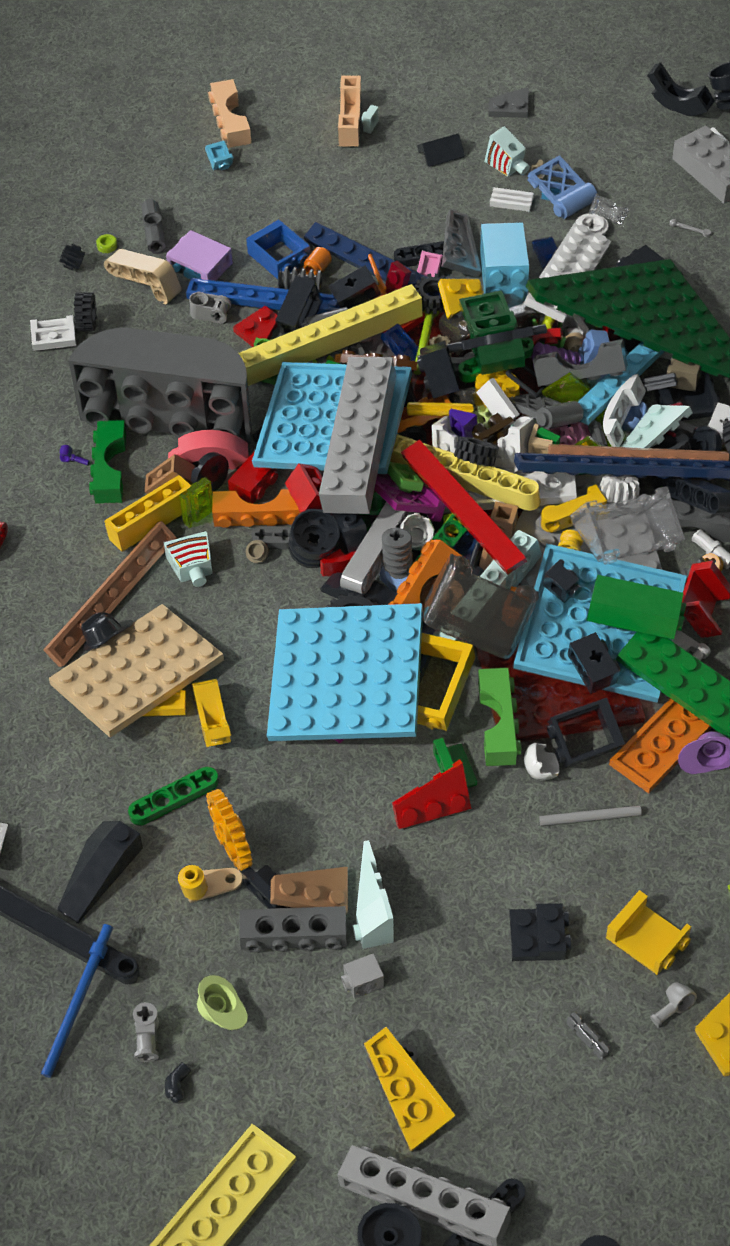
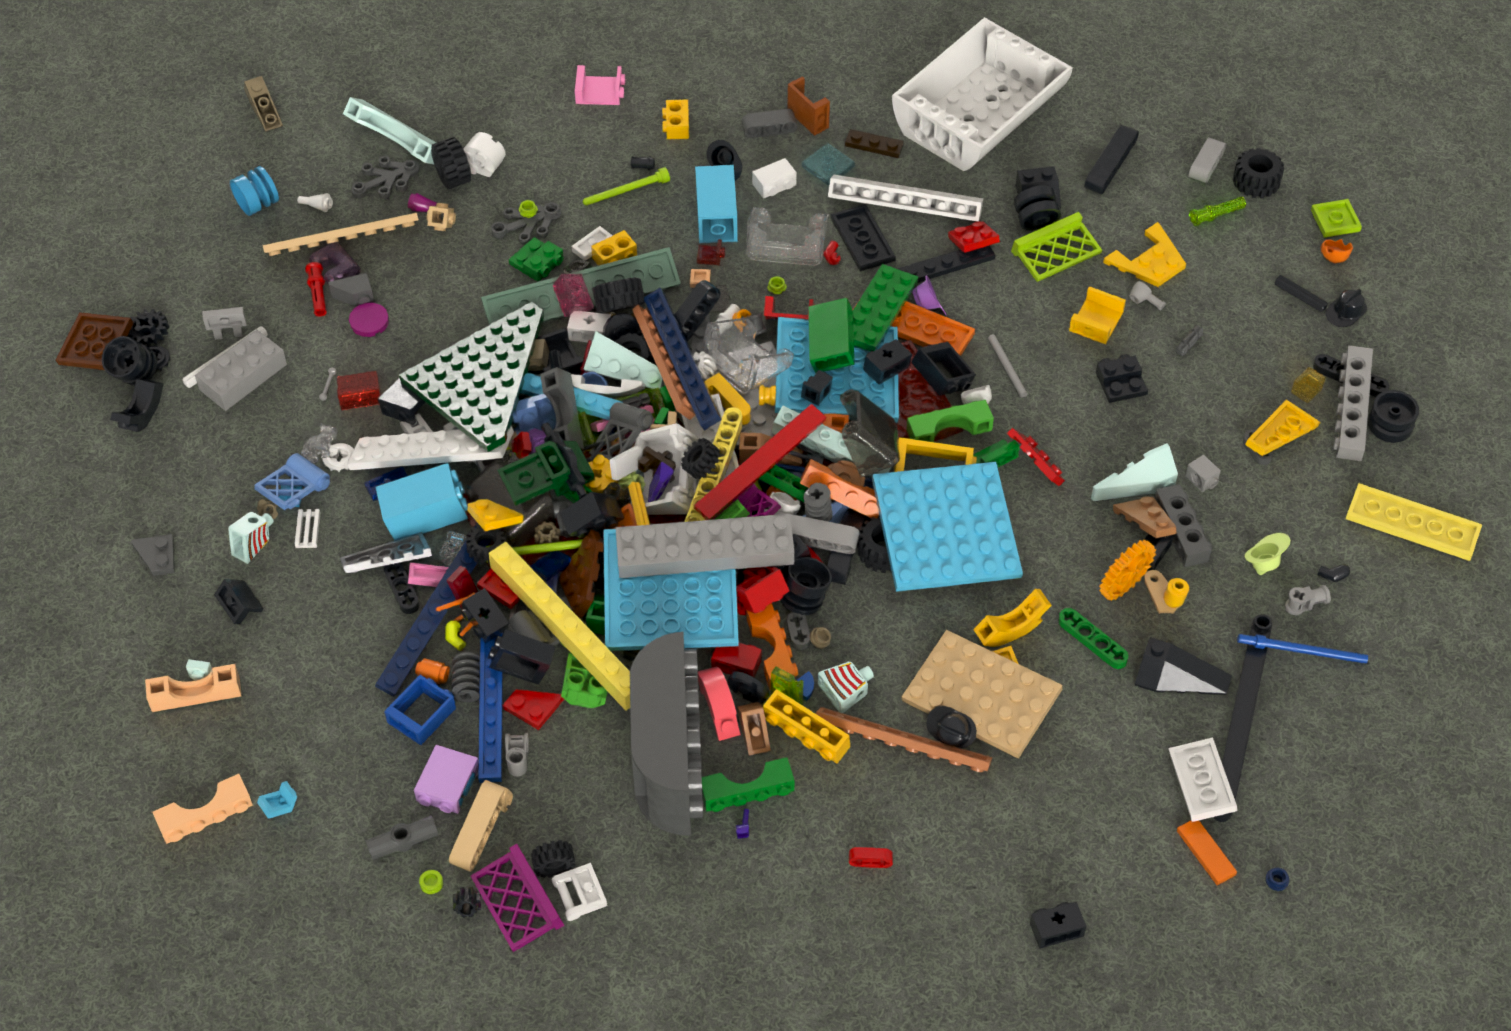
camera: 105 degrees left, 0 degrees up
(61, 303) = (535, 891): none -> magenta fence
(208, 526) = (808, 685): none -> blue tile
(476, 1156) = (1308, 384): none -> clear yellow panel
(646, 1211) = (1301, 293): none -> black axle
(674, 245) = (358, 390): none -> clear red bracket

